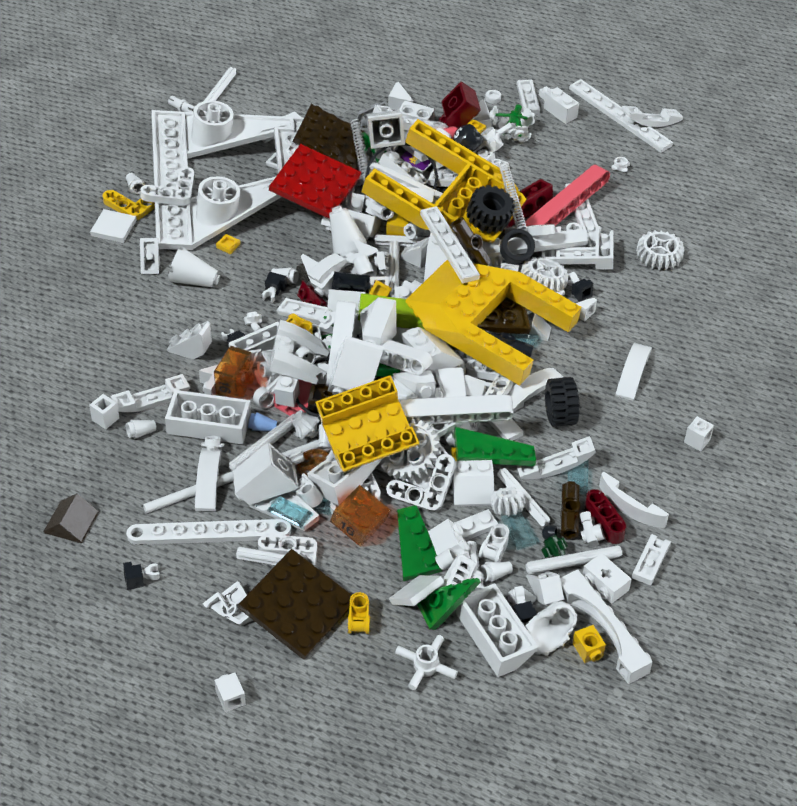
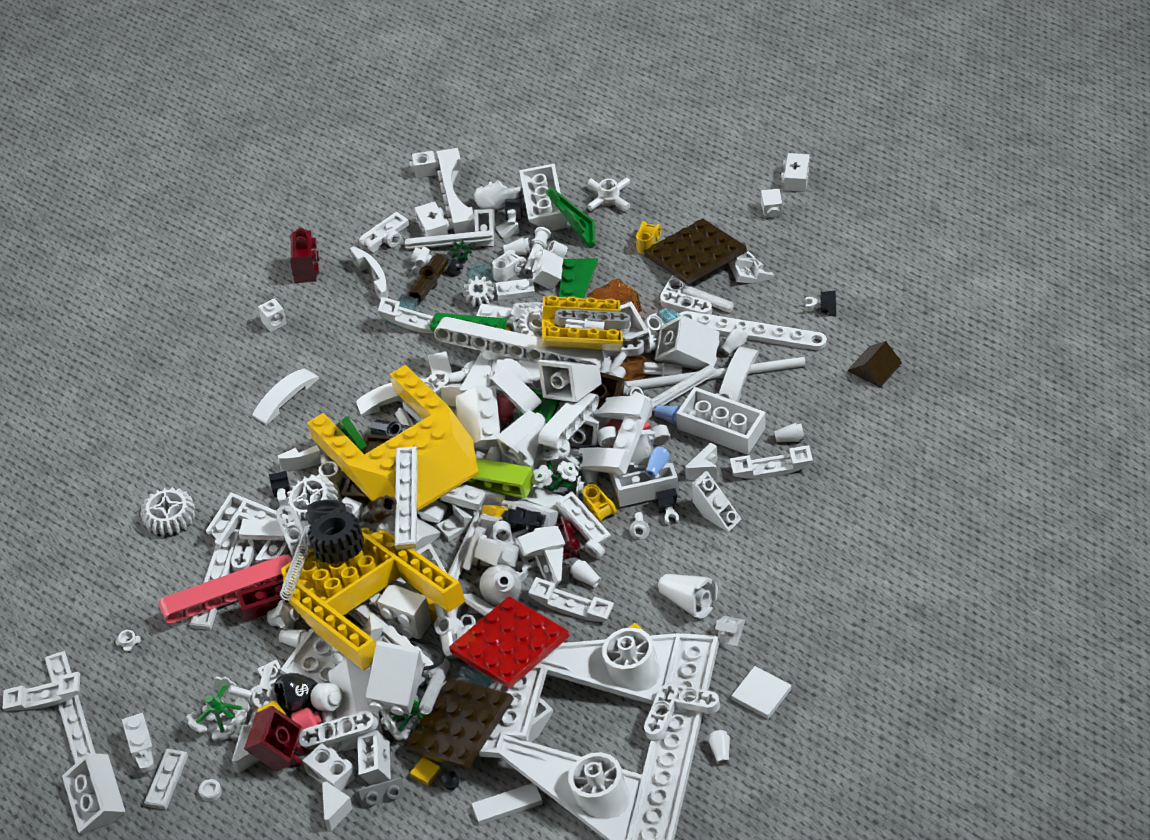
camera: 155 degrees left, 0 degrees up
(104, 411) = (822, 447): white brick -> none
(131, 206) = (733, 715): yellow beam -> none
(208, 735) = (796, 172): none -> white brick
(219, 510) = (735, 339): none -> white cone
(234, 373) = (683, 448): clear orange brick -> none
(250, 342) = (658, 459): none -> light blue cone
(273, 285) = (603, 562): black piece -> none
(283, 292) = (594, 549): none -> white tile
(288, 255) = (568, 603): none -> white slope
(358, 434) = (611, 320): none -> light grey beam
(362, 420) = (584, 324): none -> white axle
(416, 590) = (593, 236): white tile -> none
(428, 181) = (373, 628): none -> white slope
(451, 573) = (562, 236): white slope -> none
(530, 504) = (458, 295): white axle -> none
(542, 314) = (350, 431): none -> green wing
(562, 401) = (380, 354): black tyre -> none
(566, 70) = (93, 792): none -> white slope
(586, 637) = (474, 179): yellow brick -> none
(606, 515) = (401, 267): dark red beam -> none
(637, 550) = (392, 238): none -> white bush
(664, 646) = (423, 164): none -> white brick
(709, 493) = (304, 256): none -> dark red hinge

